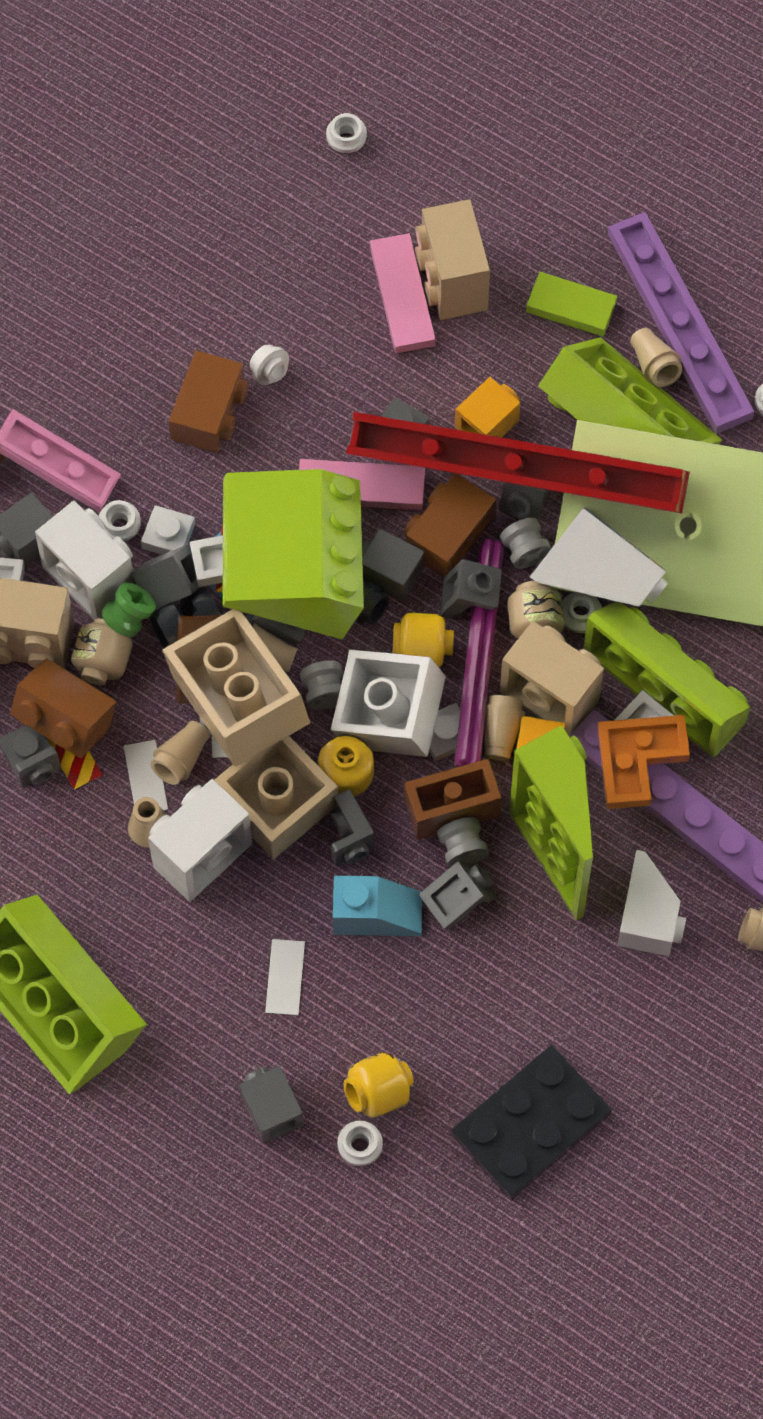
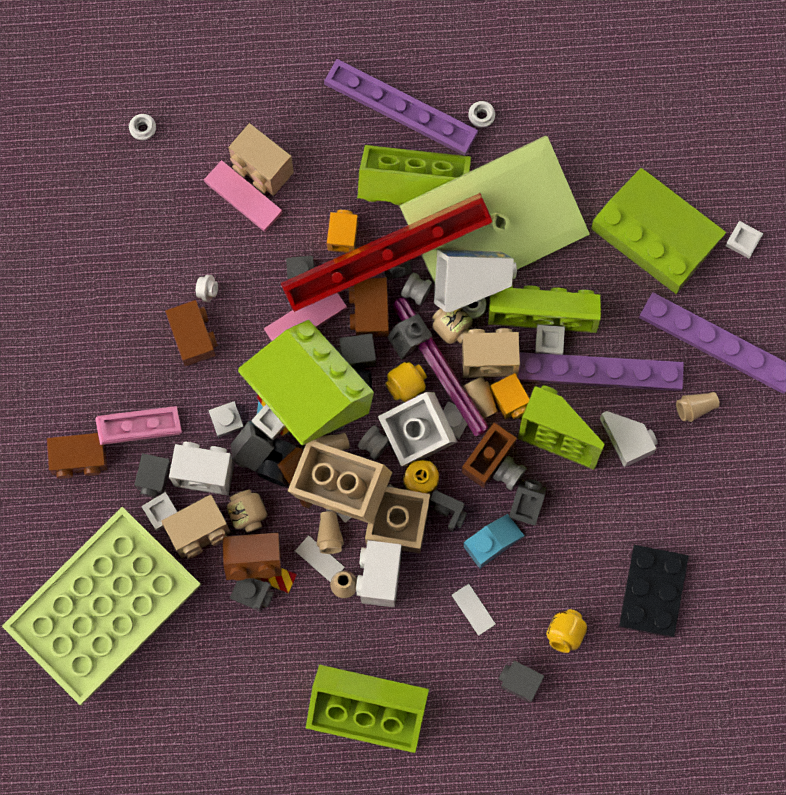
camera: 35 degrees left, 10 degrees up
(120, 510) = (196, 424): white plate -> none
(128, 609) = (246, 479): bright green wheel -> none
(363, 1130) = (587, 662): white plate -> none
(571, 304) = (336, 137): lime tile -> none
(631, 746) = (558, 365): orange plate -> none
(657, 360) = (405, 137): tan cone -> none

